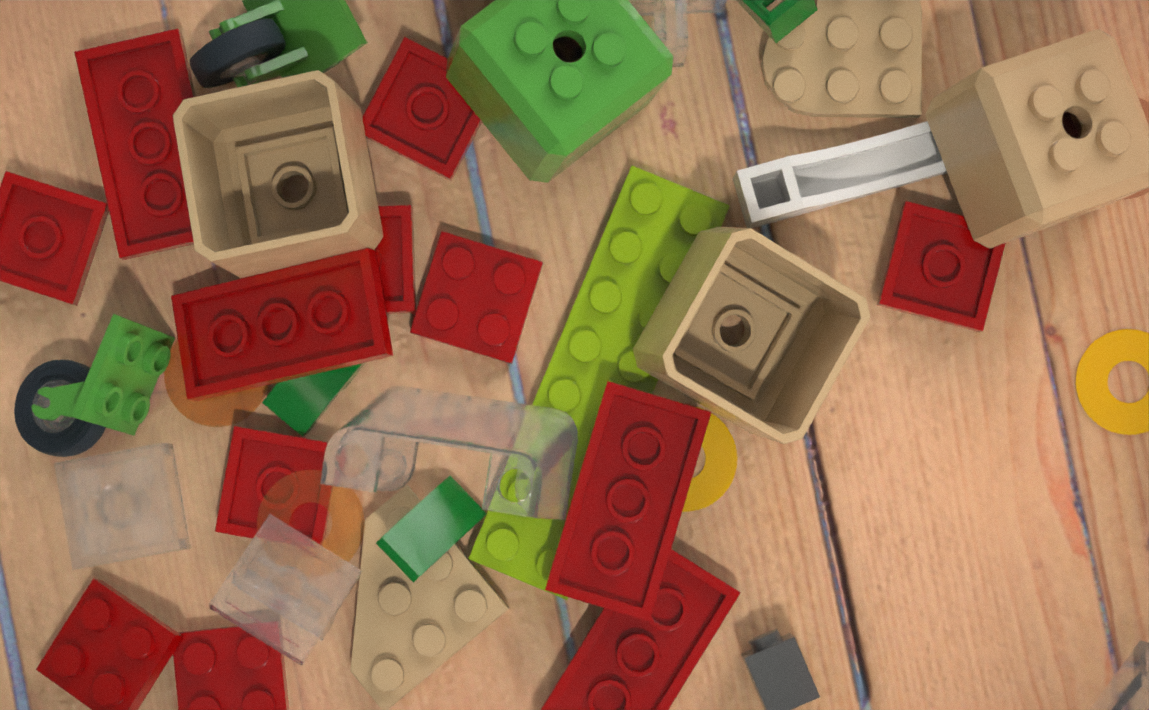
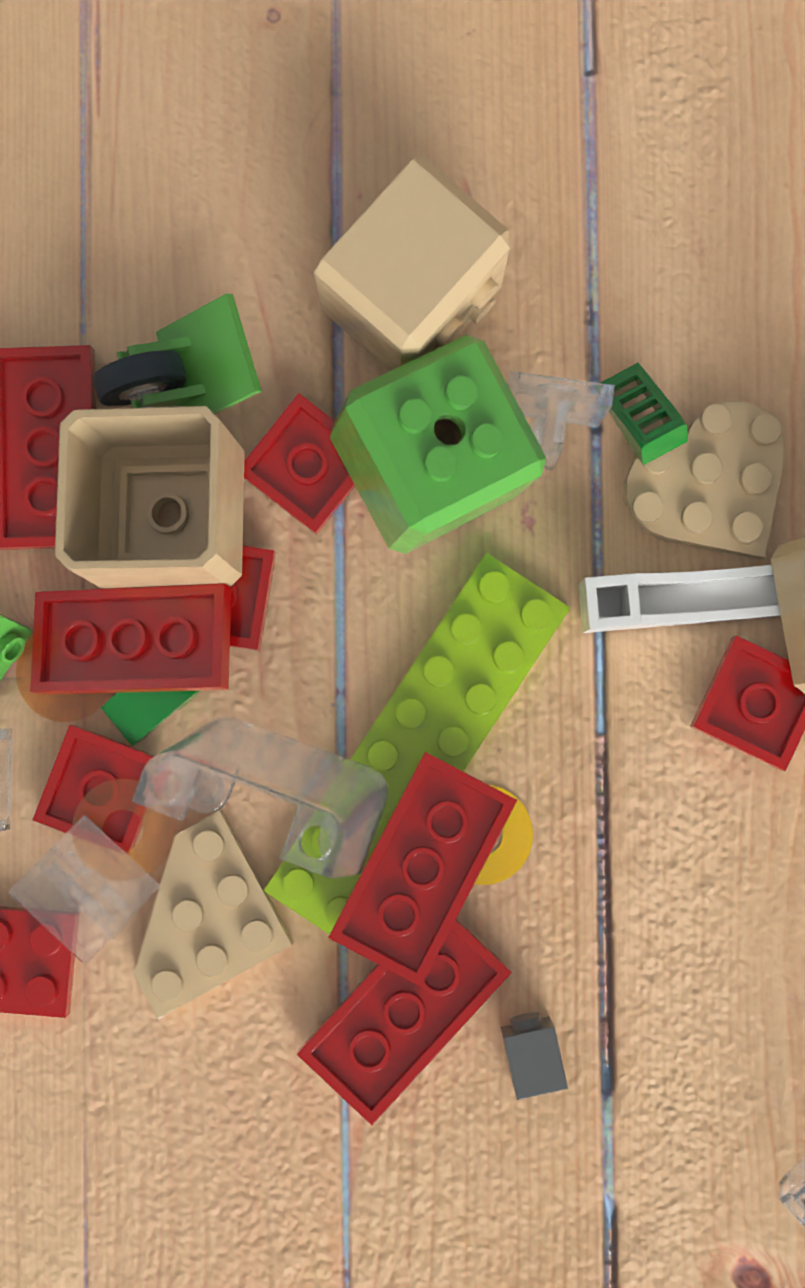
camera: 10 degrees right, 0 degrees up
(431, 528) = (232, 858): green slope -> none
(476, 297) = (319, 647): red plate -> none
(793, 340) = (610, 740): tan plate -> none

